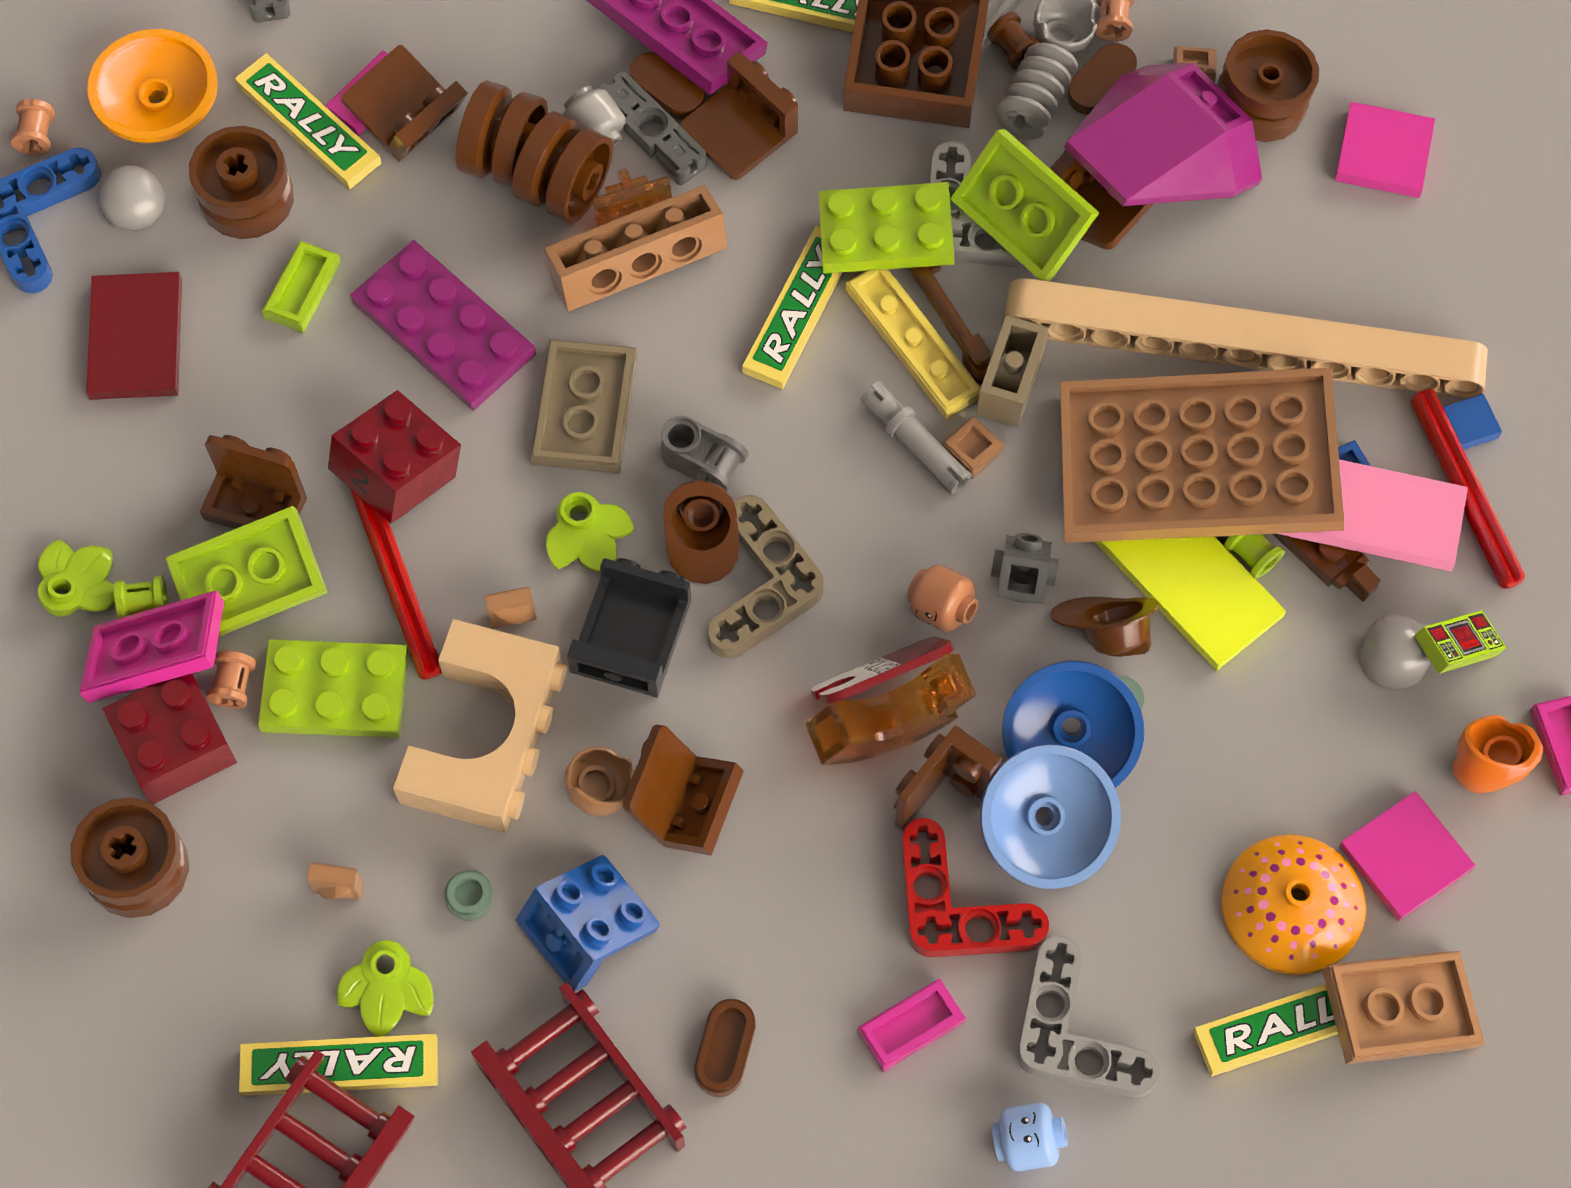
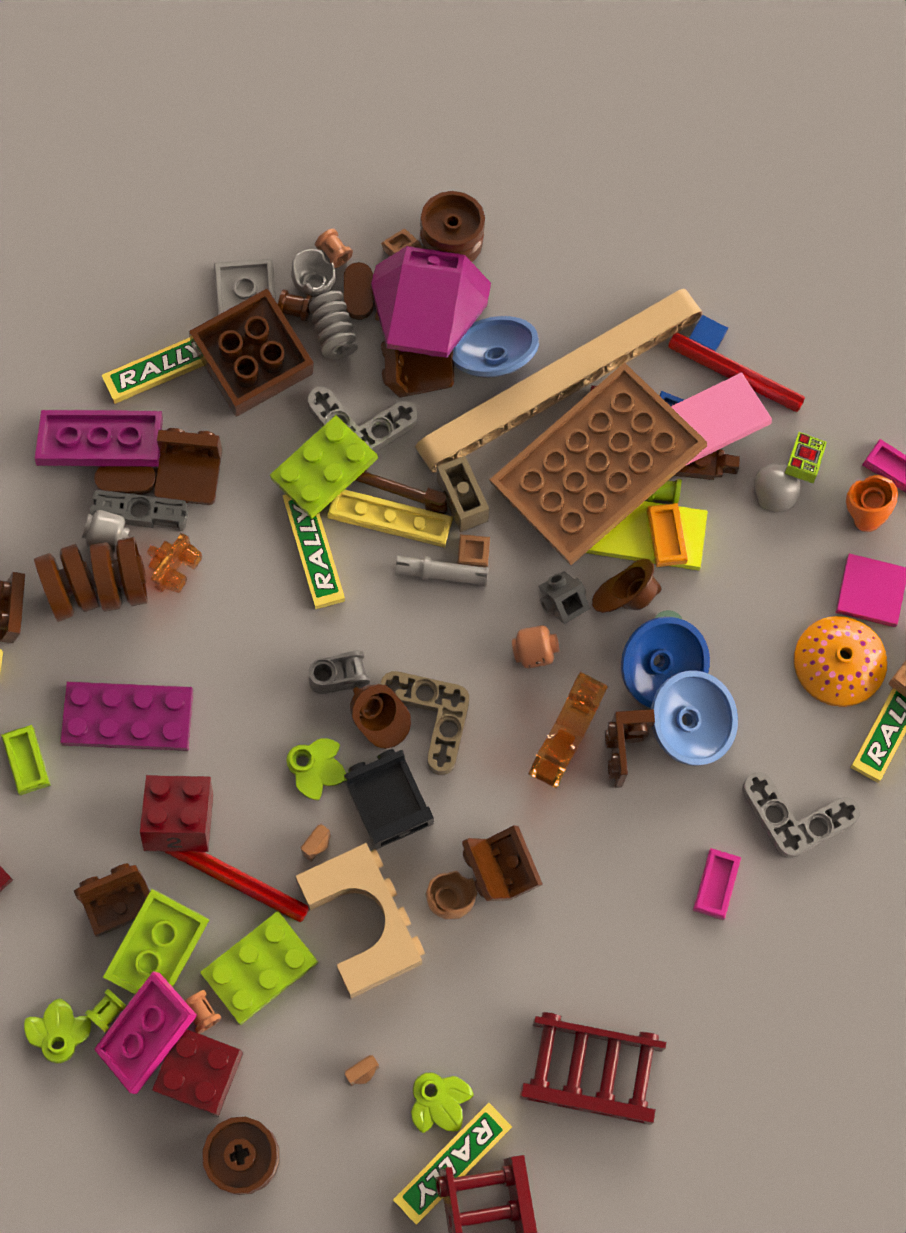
camera: 45 degrees left, 5 degrees up
(469, 895) = (435, 1014): sand green tile -> none
(584, 406) = (248, 698): dark tan tile -> none
(584, 919) = (510, 974): blue bracket -> none
(636, 248) = (200, 587): medium nougat brick -> none
(725, 1047) = (637, 977): reddish brown tile -> none
(881, 669) = (543, 711): dark red piece -> none
(939, 909) = (678, 811): red beam -> none
(1024, 205) = (391, 397): lime plate -> none
(1029, 1137) = (826, 890): light blue head -> none
(1197, 243) = (496, 346): none -> medium blue dish
(1210, 598) = (667, 535): none -> light orange tile
(1385, 149) = (538, 217): dark pink tile -> none

